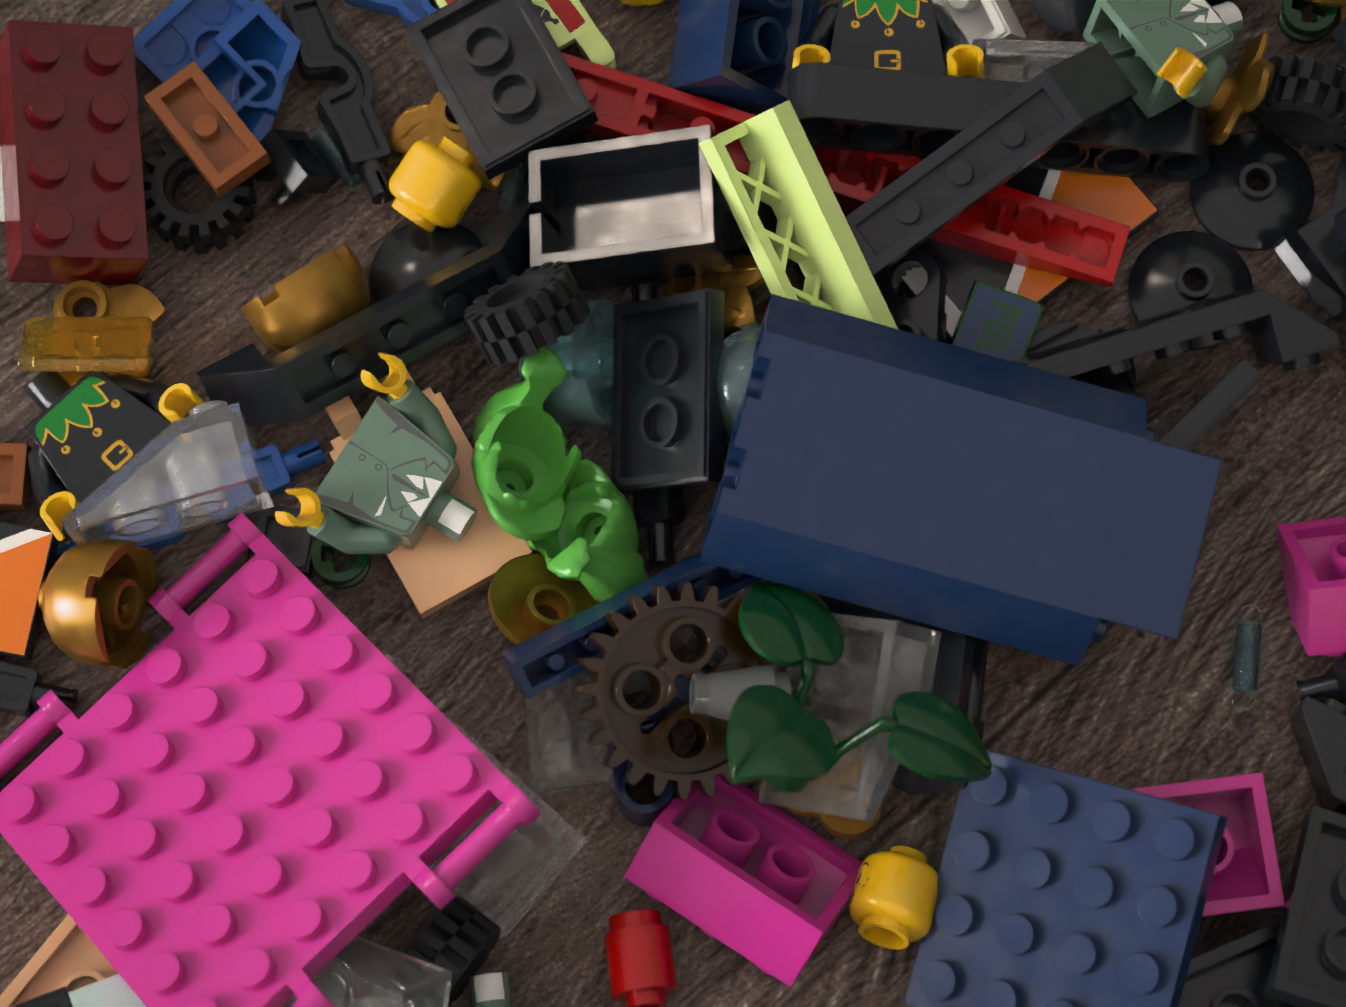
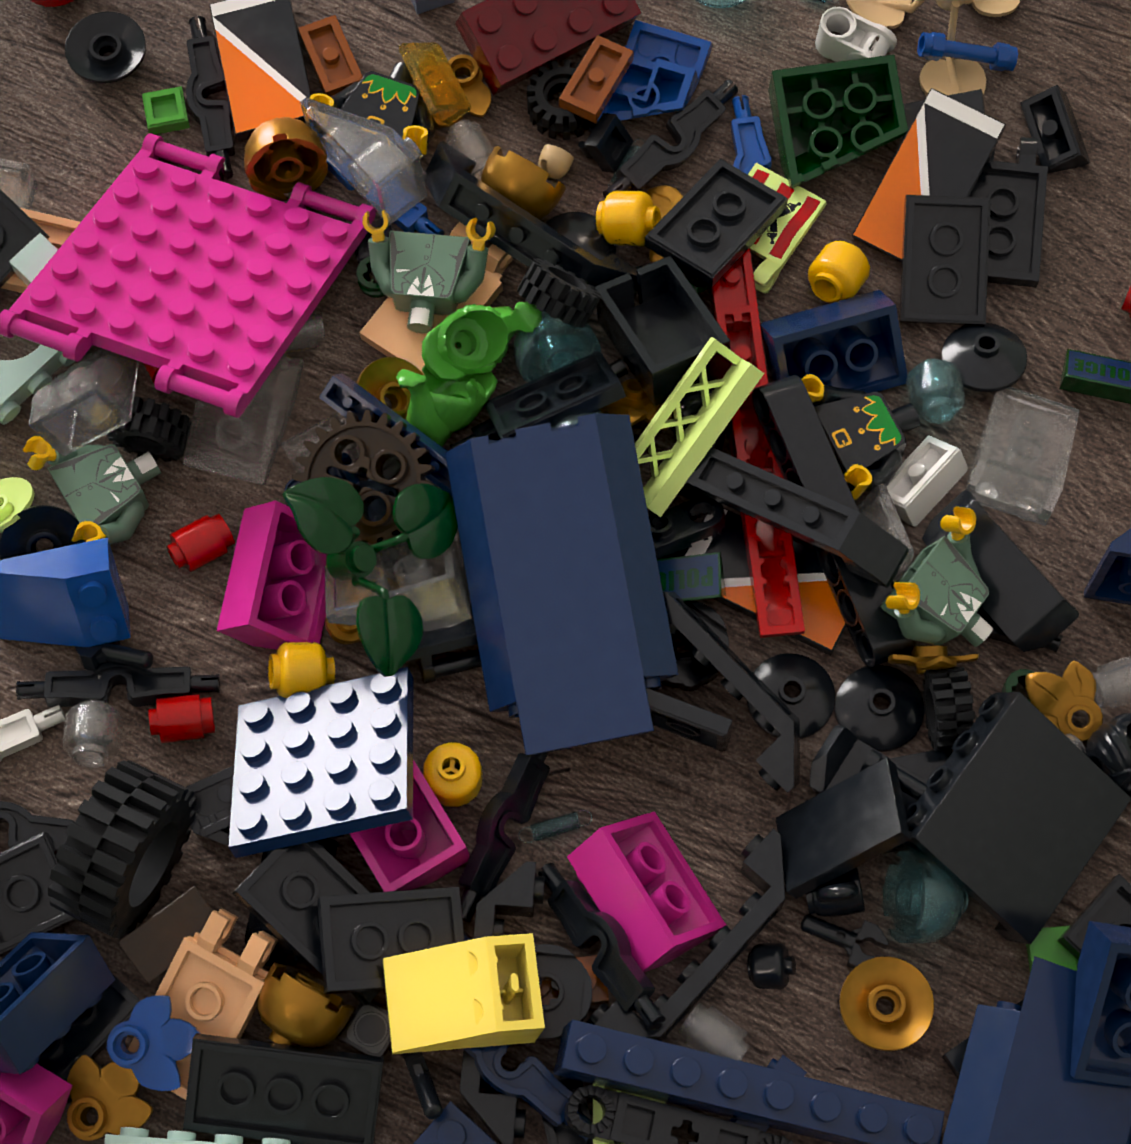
camera: 65 degrees right, 5 degrees down
(207, 340) = (471, 141): none -> clear brick
(287, 246) = (555, 161): none -> tan hinge
(717, 692) = (377, 515): dark grey cone -> none
(1136, 732) = (466, 770): none -> yellow head
(1242, 742) = (493, 846): none -> black piece

